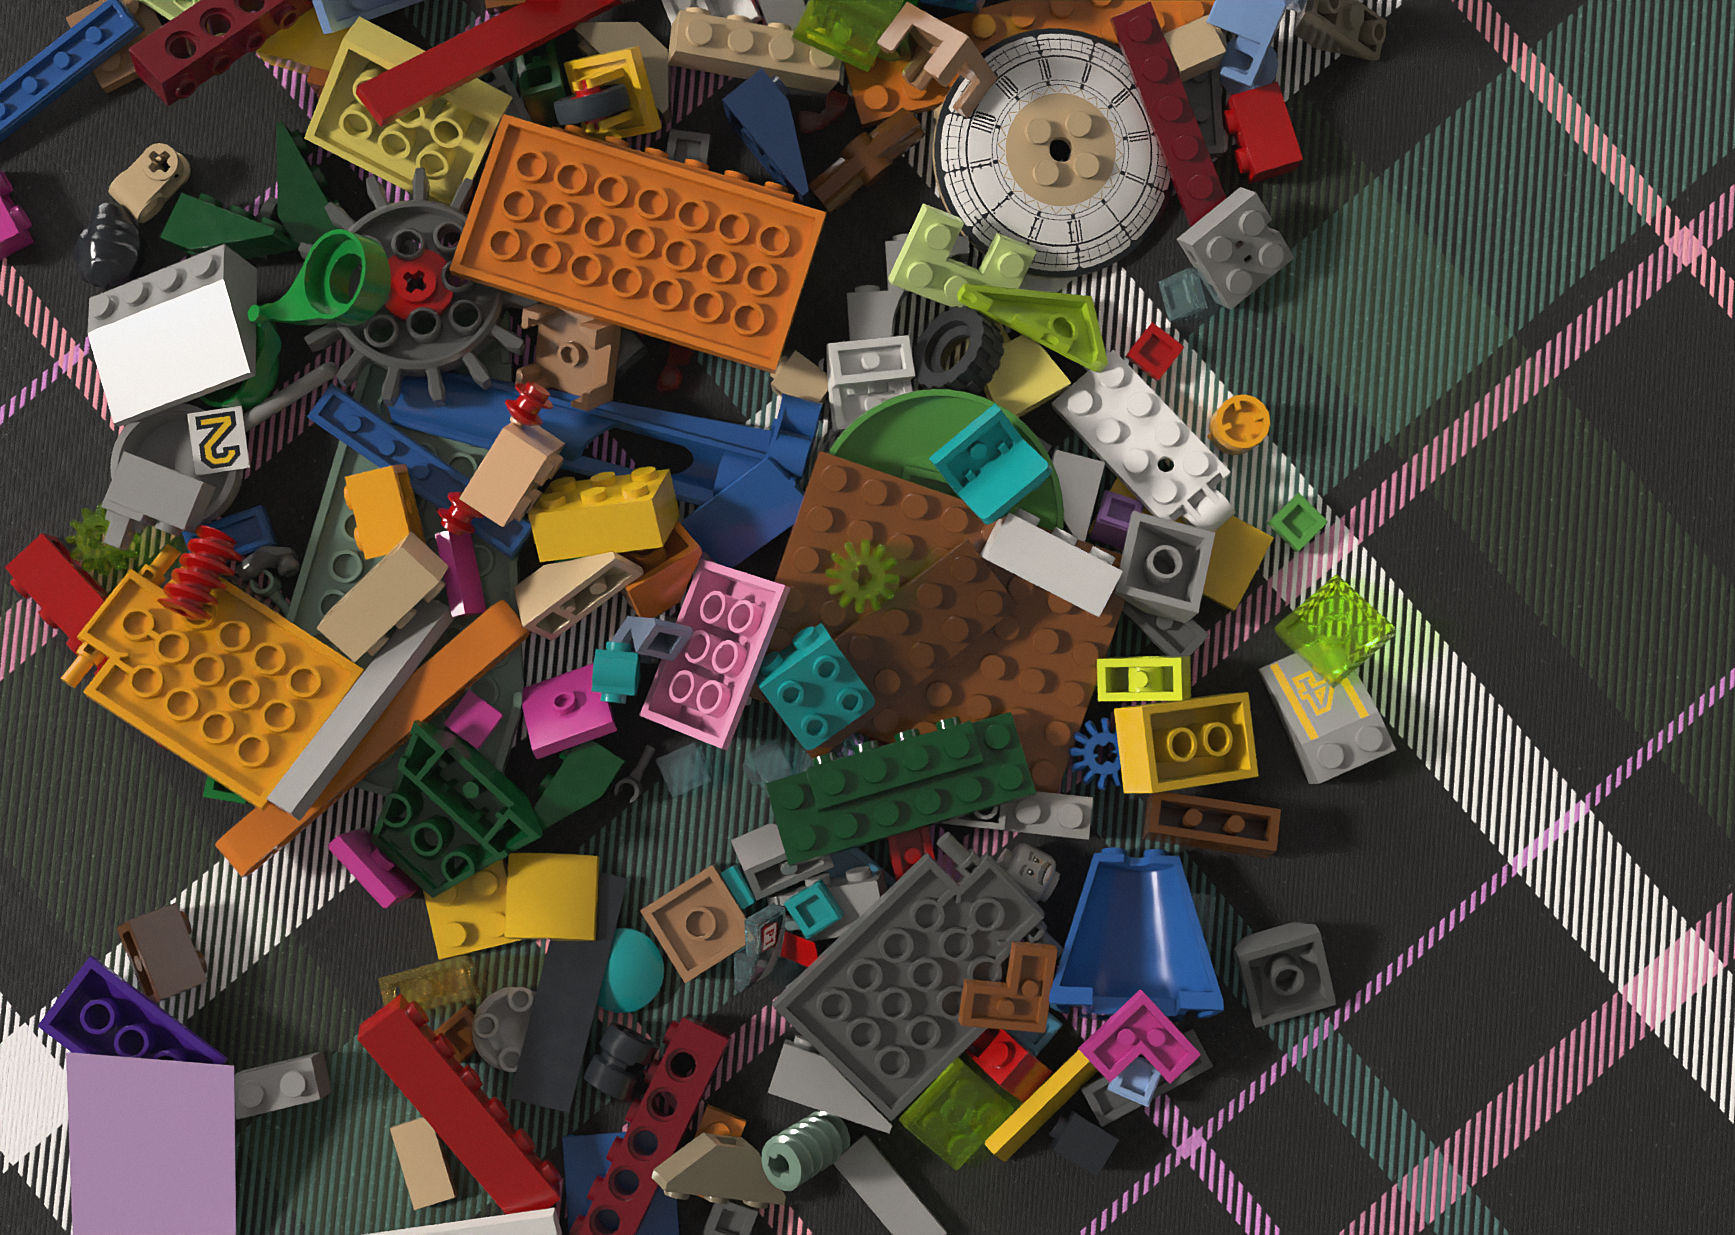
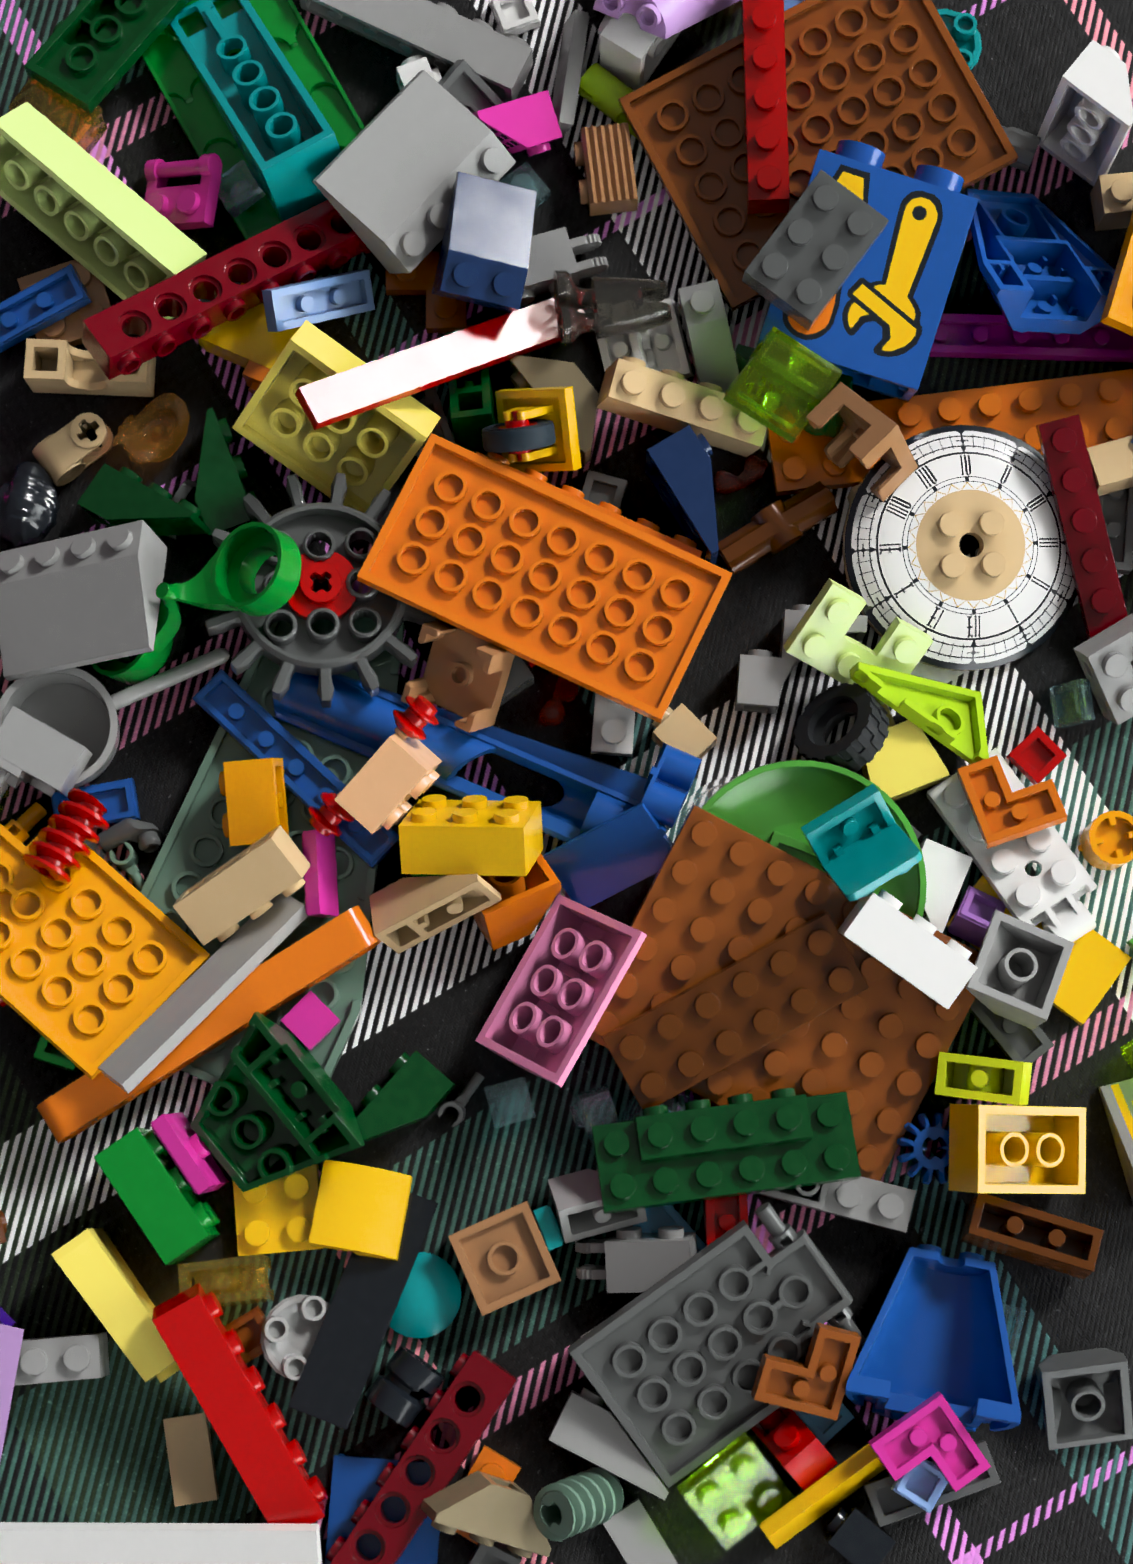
camera: 10 degrees right, 5 degrees down
(127, 103) = (63, 369): none -> tan arch
(218, 440) = (103, 708): sticker -> none
(230, 152) = (155, 431): none -> clear orange hat
(321, 1017) = (117, 1301): none -> light yellow slope
(348, 915) = (158, 1195): none -> green brick
(565, 712) = (404, 1025): dark pink plate -> none
(616, 672) = (459, 994): teal connector -> none
(653, 637) = (495, 964): sand blue slope -> none
(731, 386) = (612, 728): none -> white plate
(763, 946) = (566, 1288): clear light blue slope -> none
(798, 949) = (589, 1293): red sticker -> none
(813, 687) = (655, 1037): teal bracket -> none
(814, 908) = (622, 1260): teal tile -> none
(865, 375) = (748, 737): white slope -> none
(873, 565) = (730, 924): clear neon green gear -> none
(1031, 870) = (844, 1254): light grey head -> none
(1131, 414) = (1005, 813): none -> orange plate

